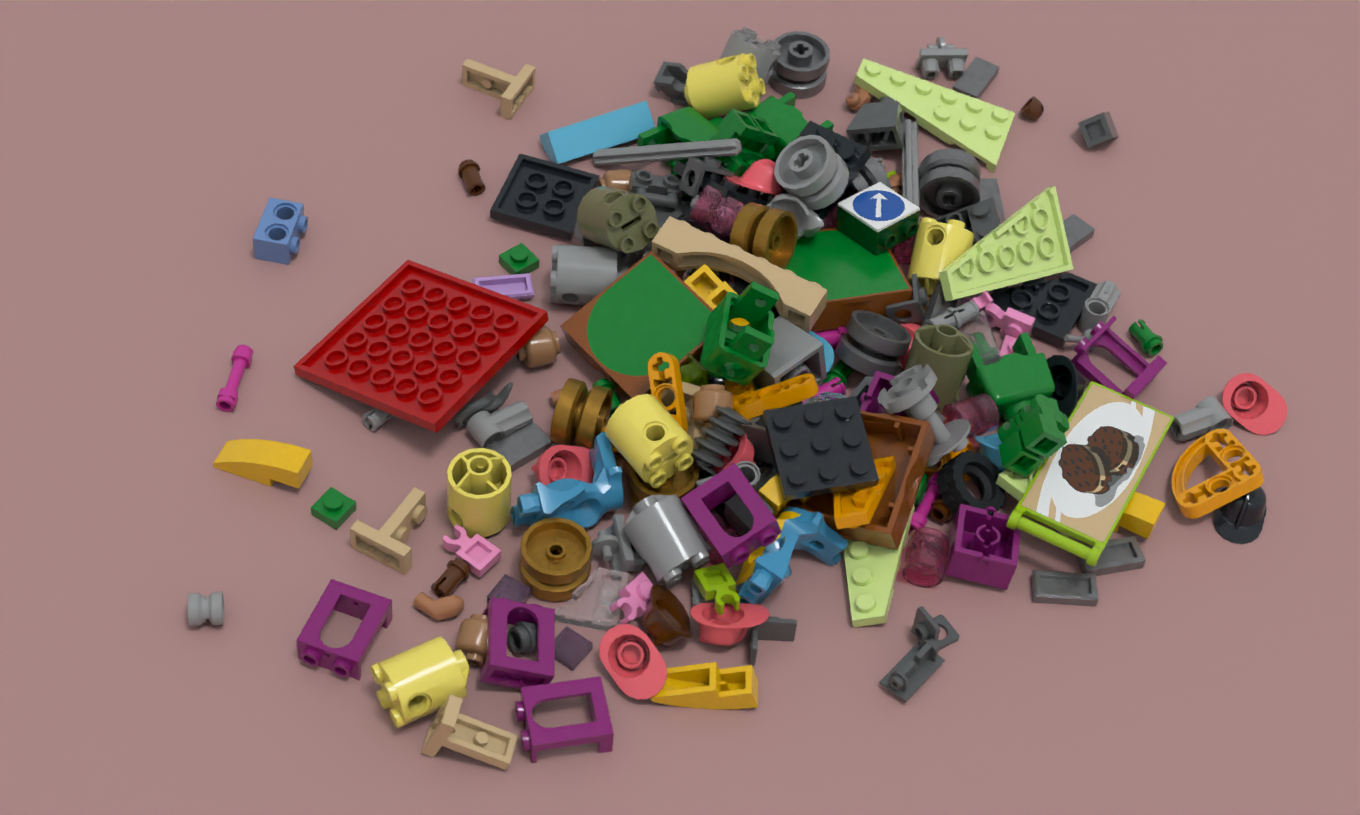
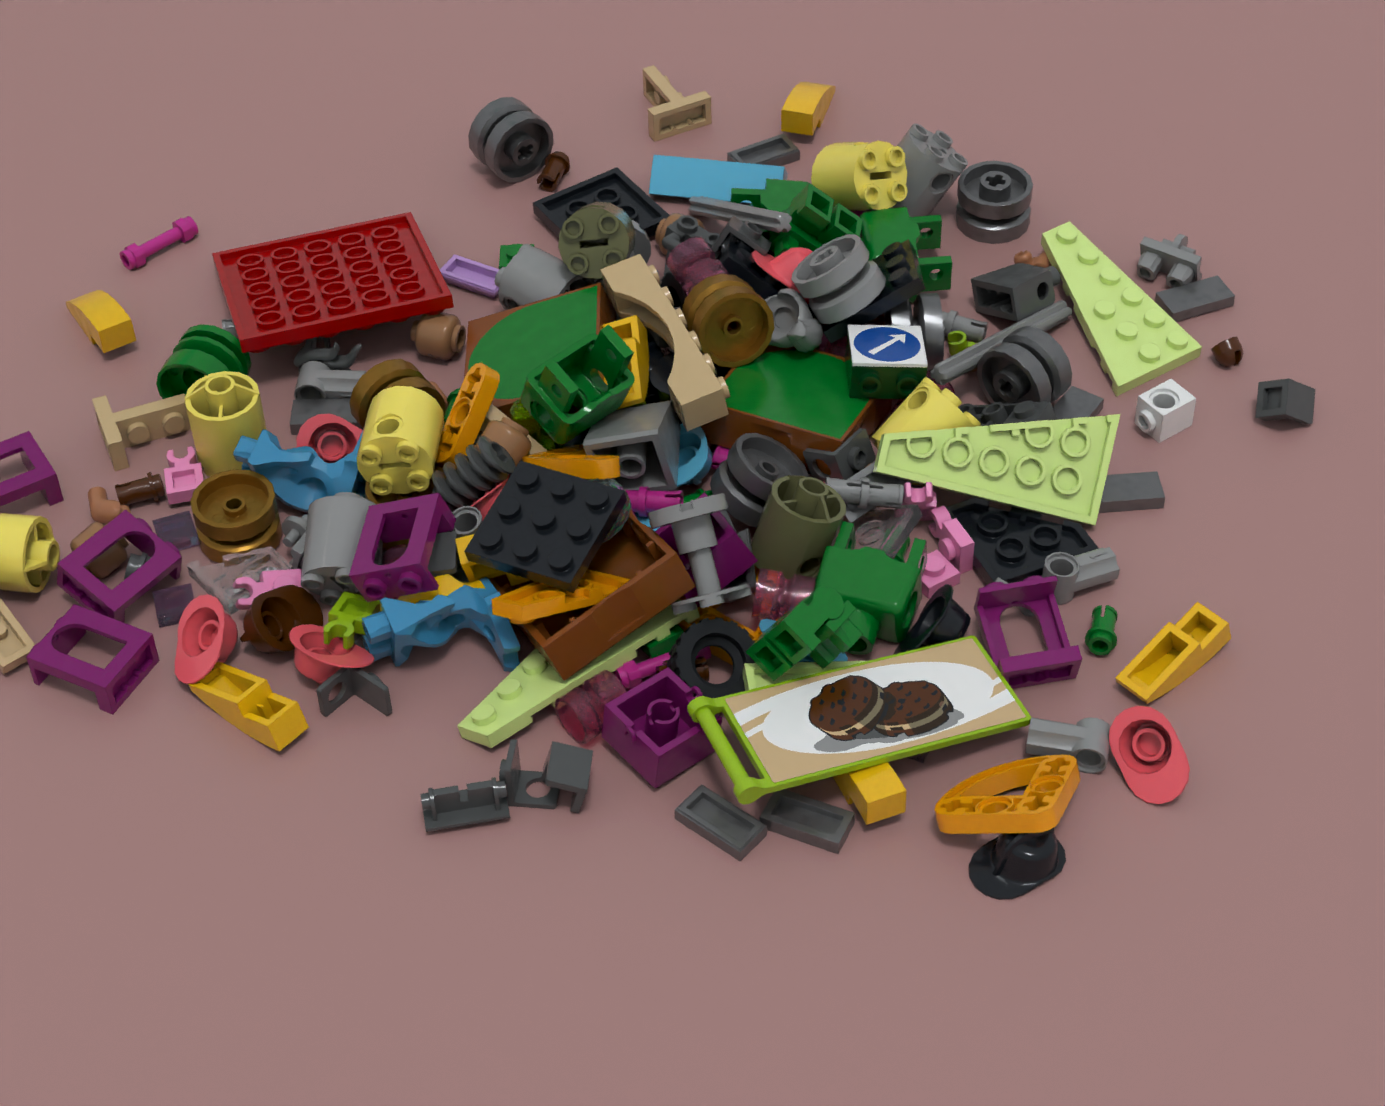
camera: 45 degrees right, 5 degrees down
(279, 231) = (328, 141): medium blue brick -> none
(333, 508) = (117, 384): green plate -> none
(411, 458) = (200, 353): none -> green wheel
(430, 166) = (510, 139): none -> flat silver wheel
(598, 44) = (806, 107): none -> yellow slope
(602, 96) = (772, 151): none -> flat silver tile
(963, 607) = (569, 770): none -> dark grey panel
(1040, 168) = (1165, 410): none -> white brick
(1199, 331) = (1175, 653): none -> yellow slope

